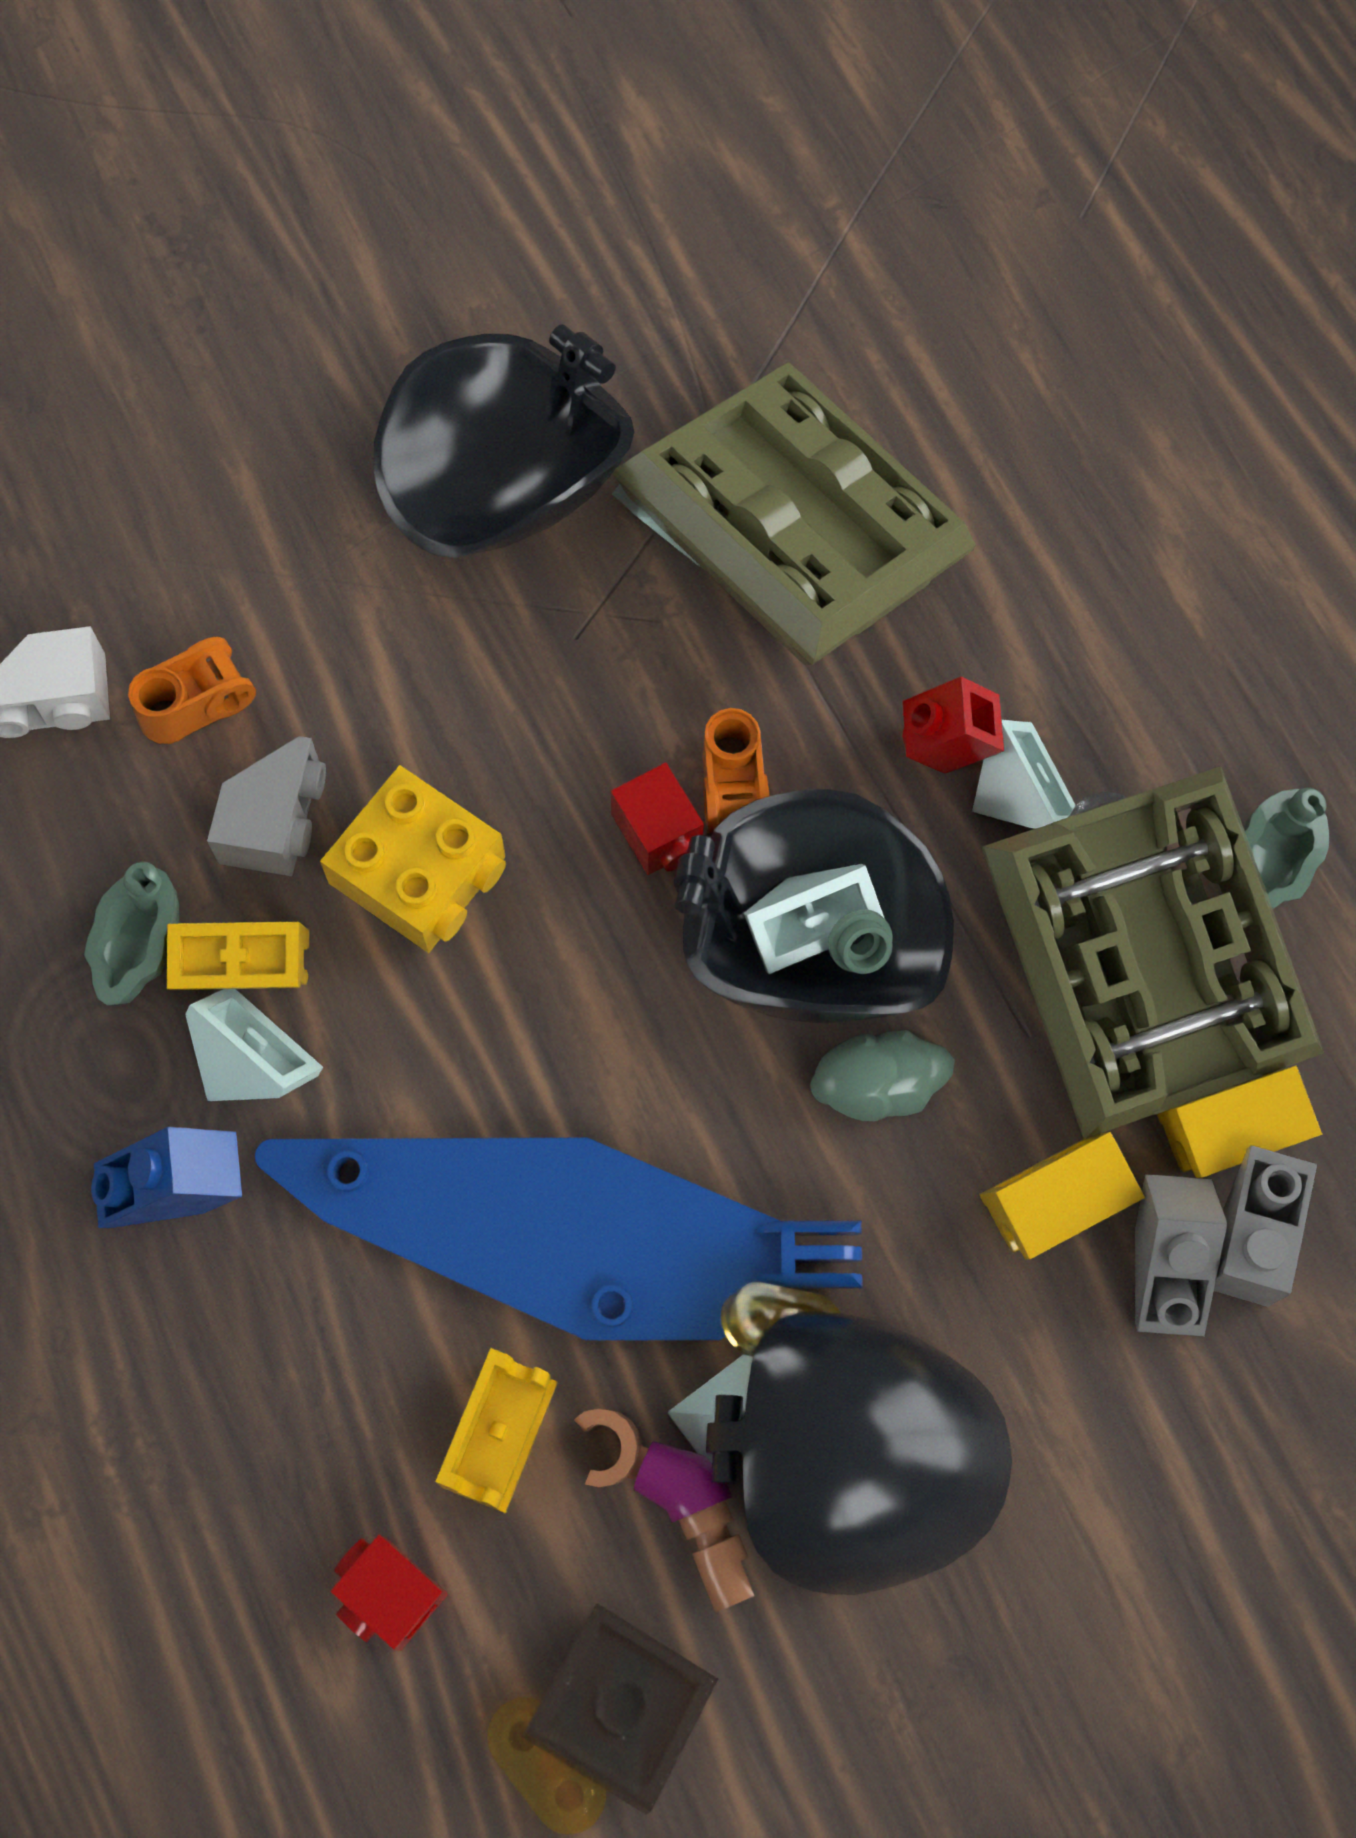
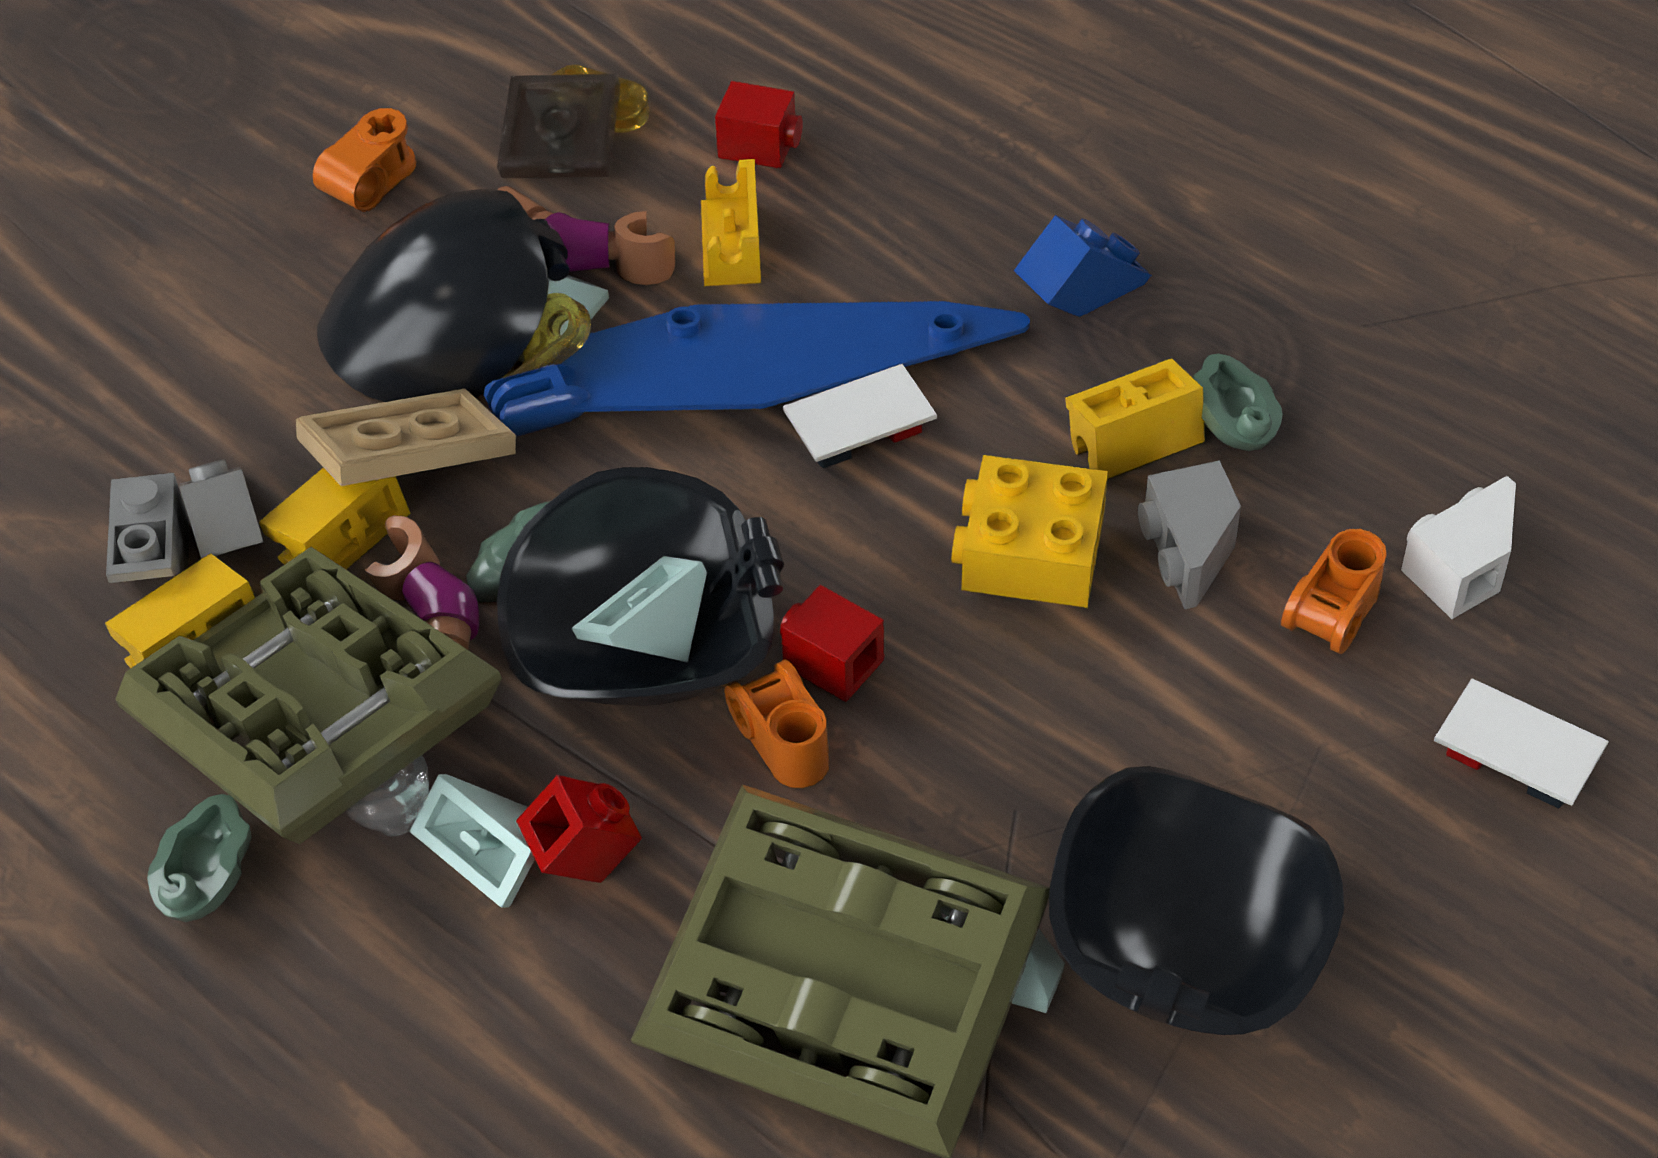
camera: 160 degrees right, 20 degrees down
(148, 500) = (1520, 743): none -> white piece
(244, 1051) = (1064, 369): light aqua slope -> none
(493, 1093) = (860, 414): none -> white piece
(871, 951) = (587, 590): sand green plate -> none
(887, 1748) = (366, 166): none -> orange piece
(967, 1242) = (404, 436): none -> tan tile
(992, 1045) = (425, 585): none -> piece

